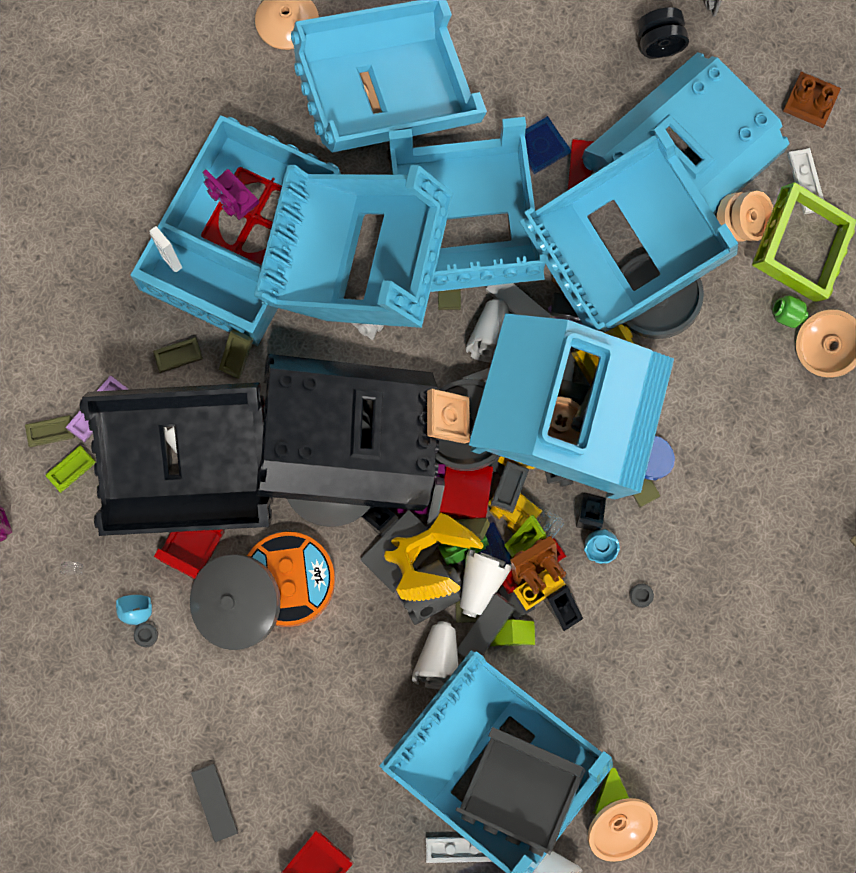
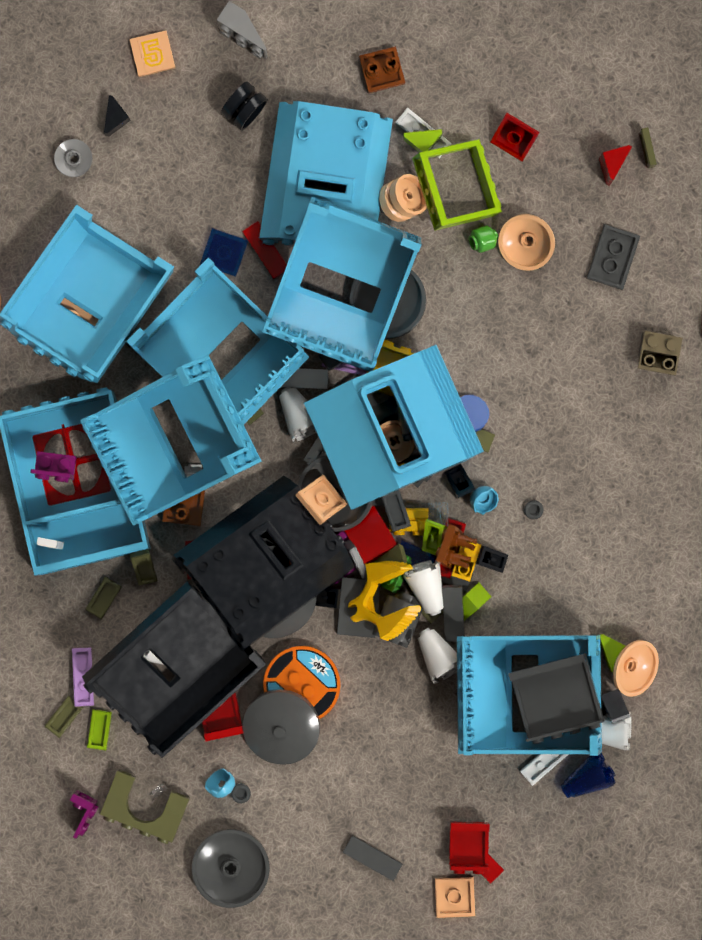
camera: 45 degrees left, 10 degrees up
(22, 552) = (117, 809): none -> olive arch
(73, 697) = (230, 868): none -> dark grey dish
(319, 335) = (187, 511): none -> dark orange plate
(571, 849) = (614, 706): none -> black slope
(805, 178) = (423, 140): none -> lime slope

